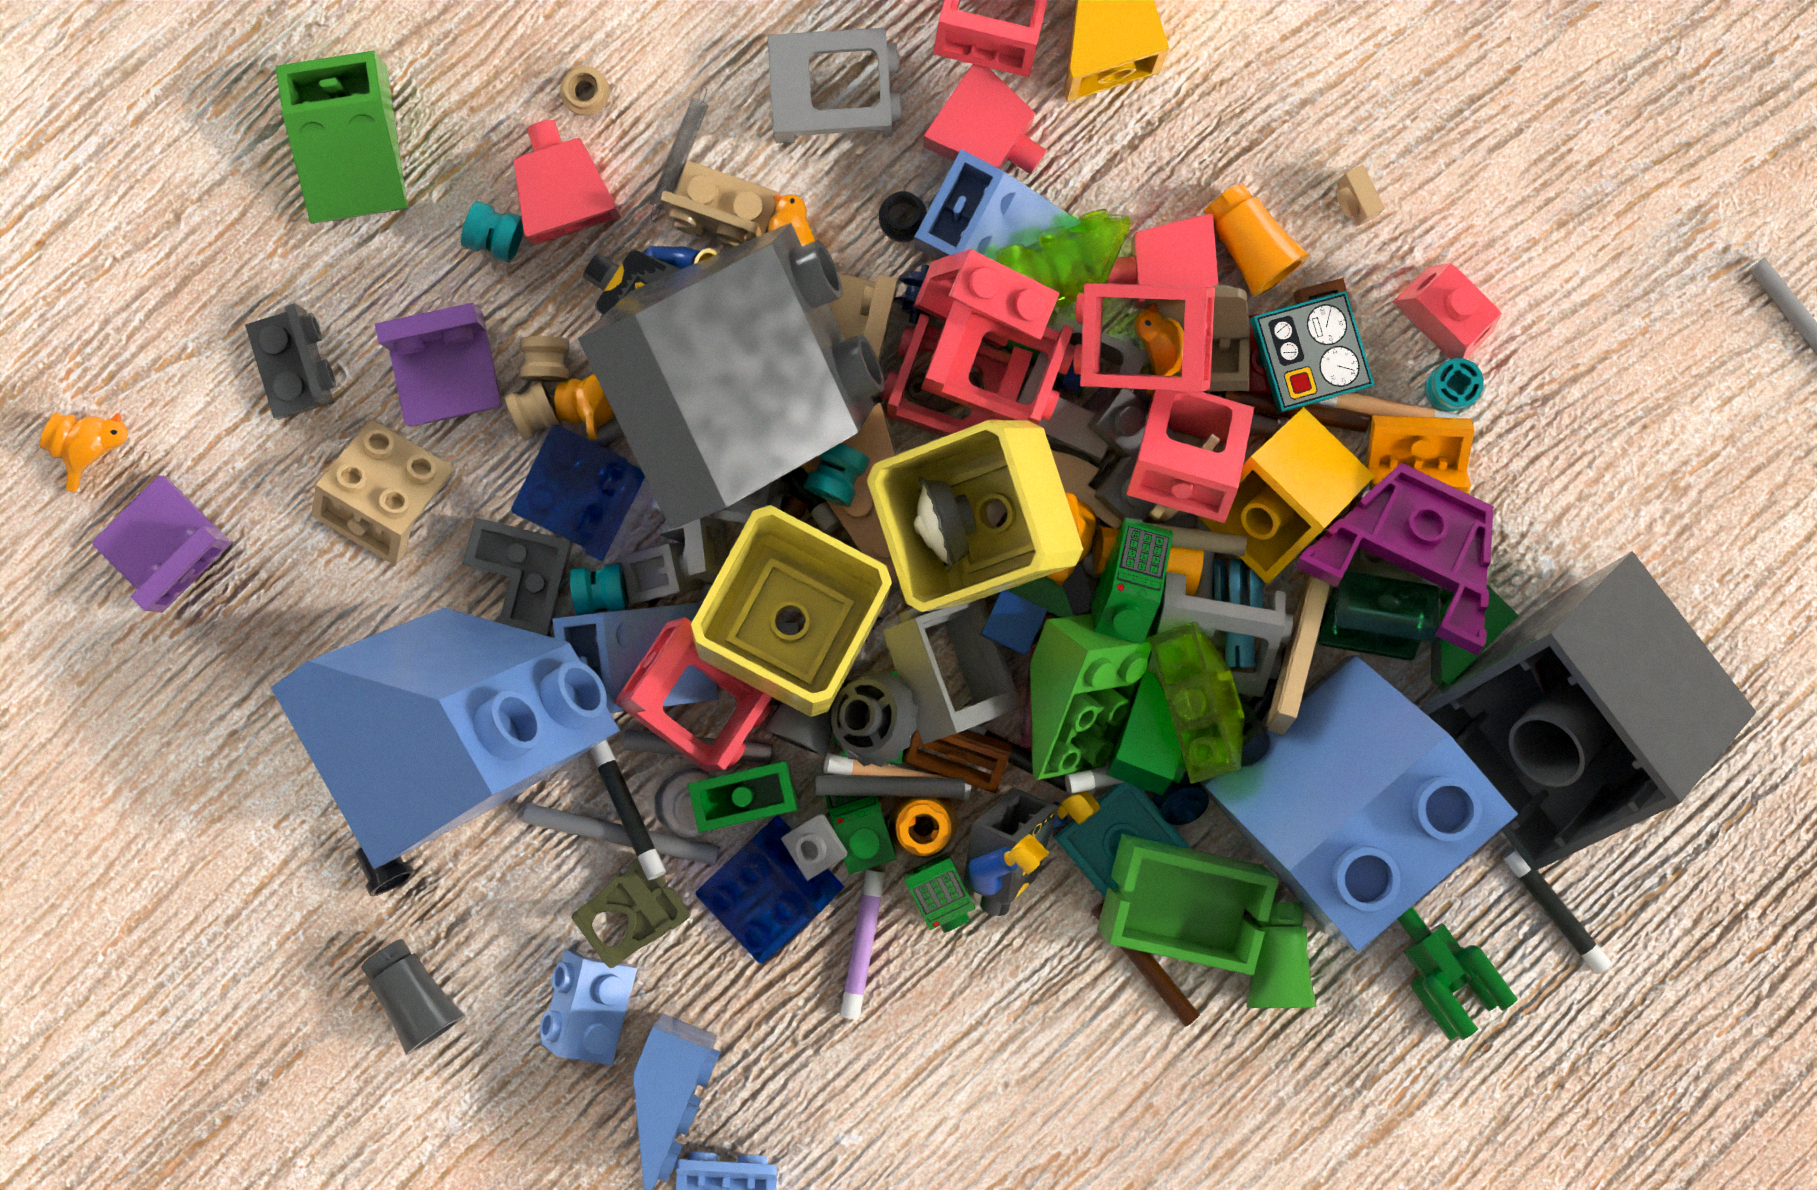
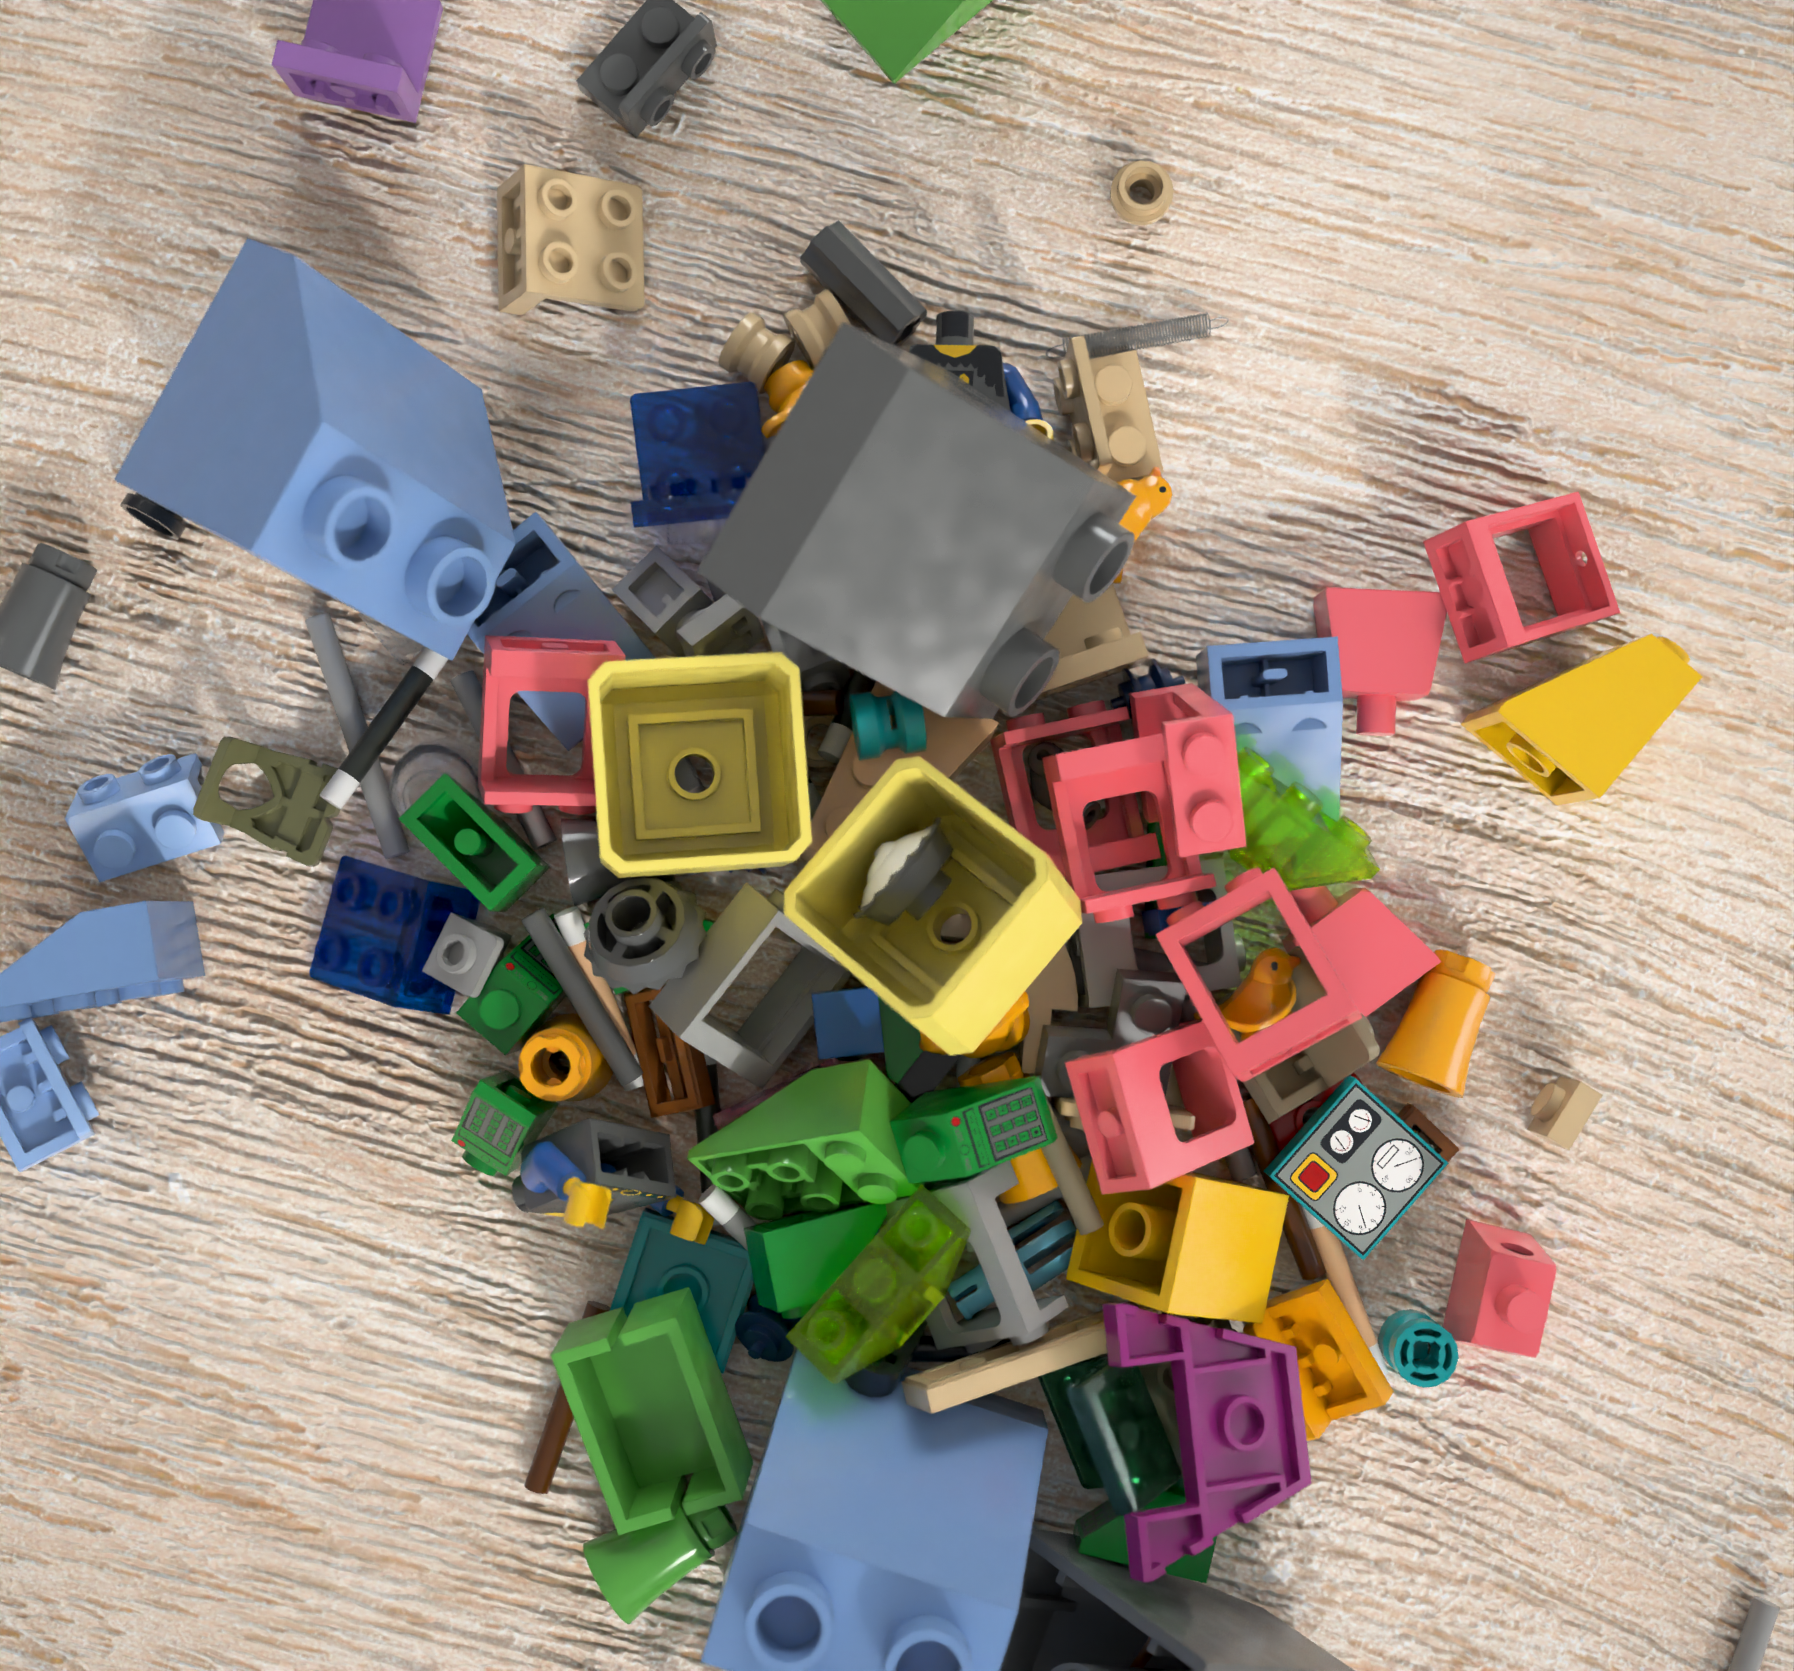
camera: 60 degrees right, 0 degrees up
(441, 364) = (746, 221): medium lavender bracket -> none
(492, 231) = (924, 187): teal wheel -> none
(532, 313) = (862, 285): none -> dark grey axle
(534, 567) = (589, 459): dark grey plate -> none
(559, 187) = (1018, 229): coral torso -> none
(598, 589) = (604, 544): teal wheel -> none
(791, 88) = (1289, 408): light grey window -> none
(862, 944) = (396, 1074): lavender bar -> none
(897, 231) = (1204, 632): black piece -> none

